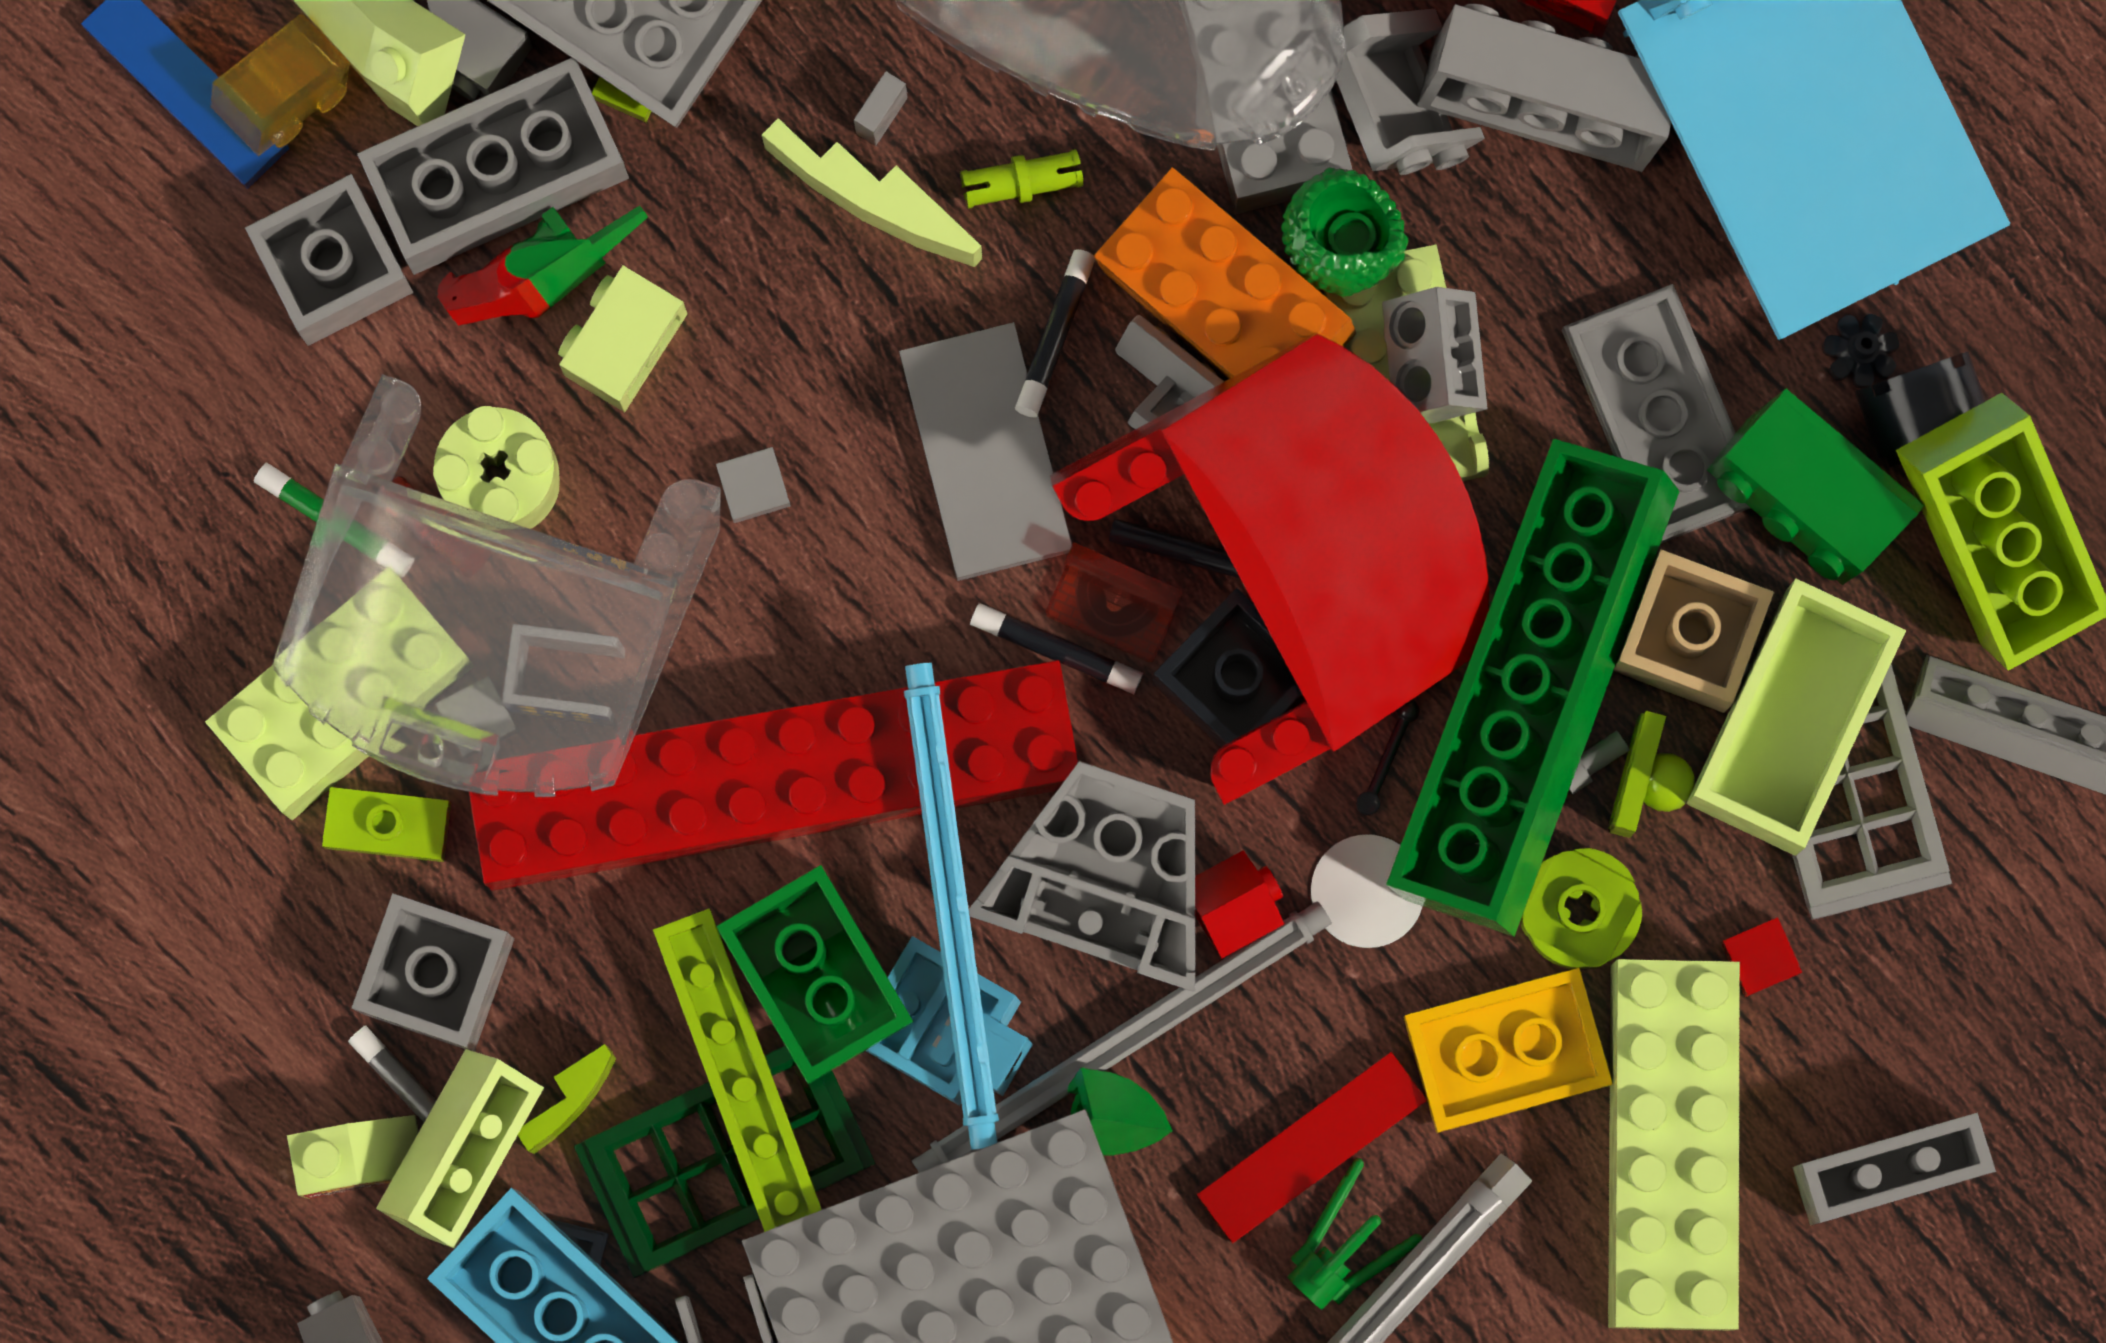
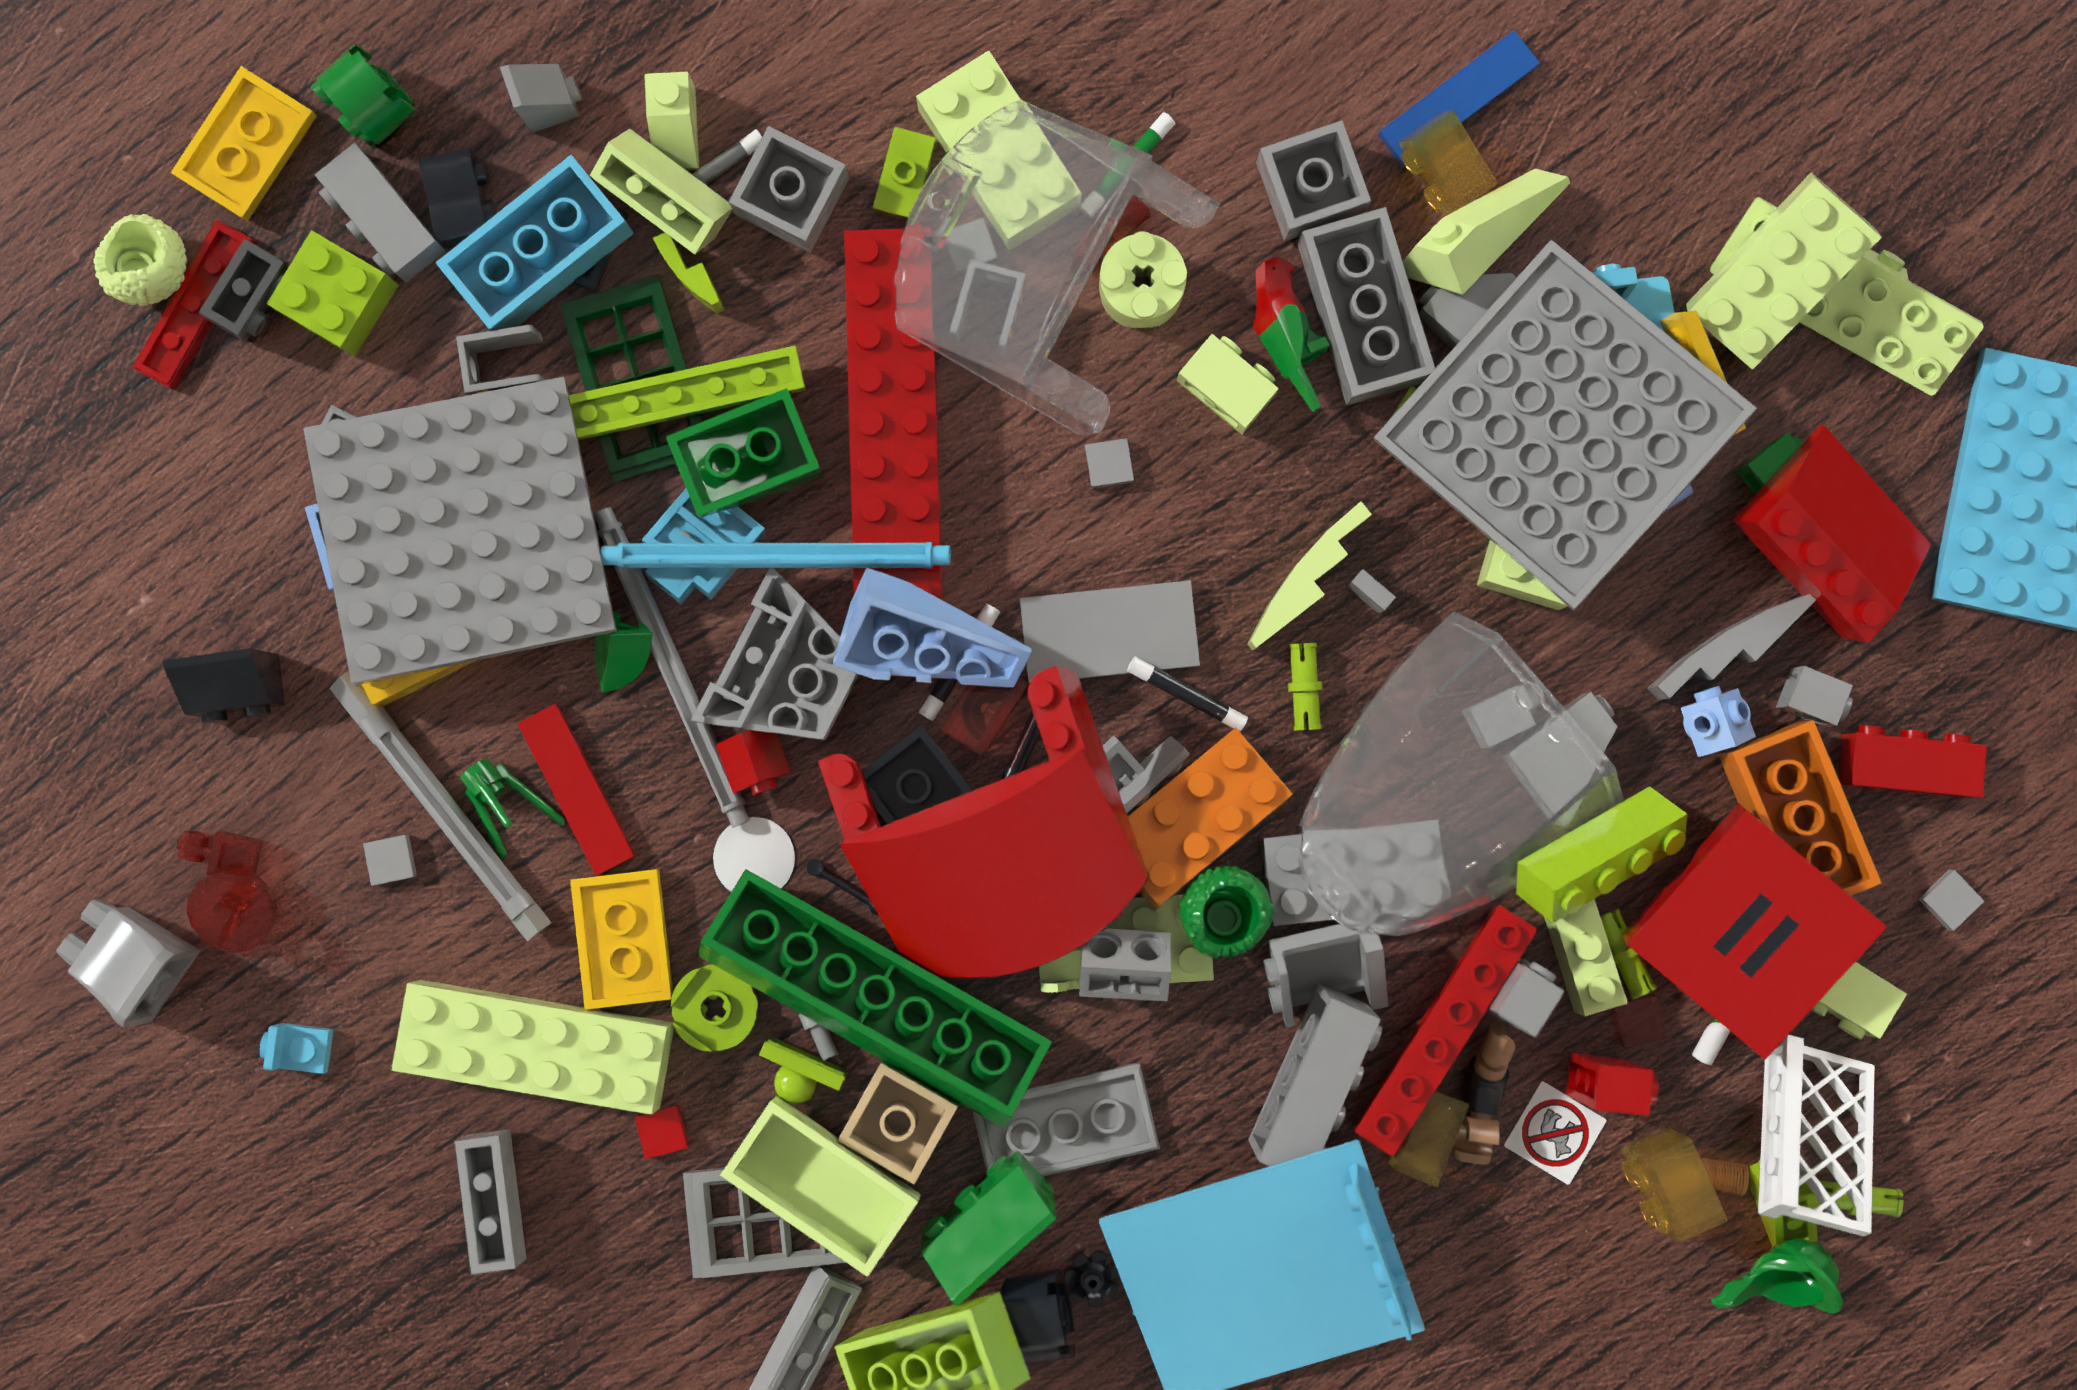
camera: 100 degrees right, 5 degrees up
(1032, 700) = (913, 634): none -> light blue wedge

